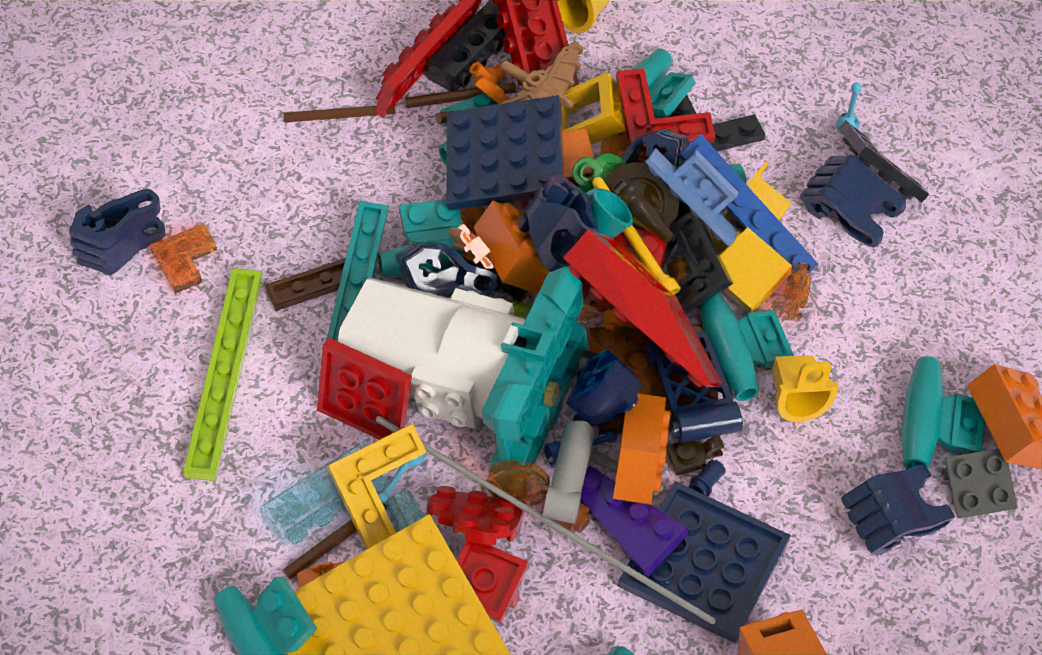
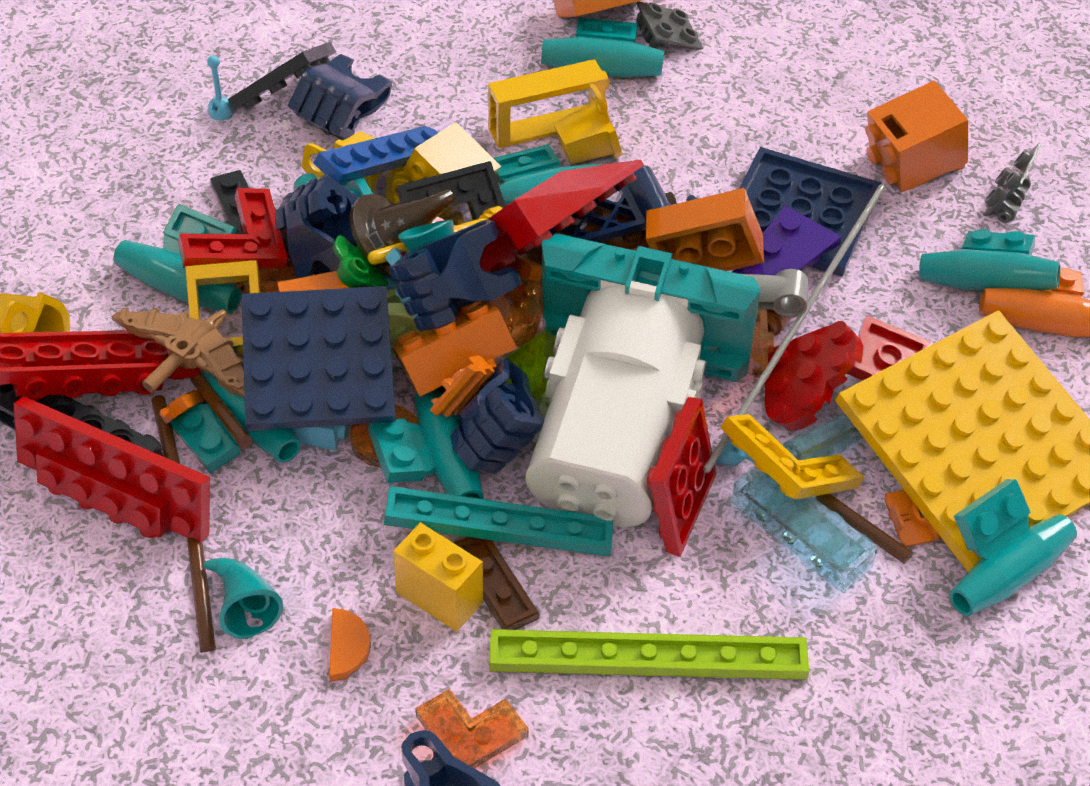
camera: 95 degrees left, 5 degrees down
(272, 193) = (348, 644): none -> orange tile
(303, 234) = (438, 576): none -> yellow piece
(318, 131) = (242, 589): none -> teal hat
(491, 72) = (140, 419): orange arm -> none
(604, 389) = (668, 231): clear blue brick -> none
(700, 189) = (382, 168): medium blue bracket -> none
(797, 291) = (481, 123): clear orange plate -> none
(835, 340) = (536, 87): none -> yellow window
(892, 508) = (719, 75): dark blue piece -> none

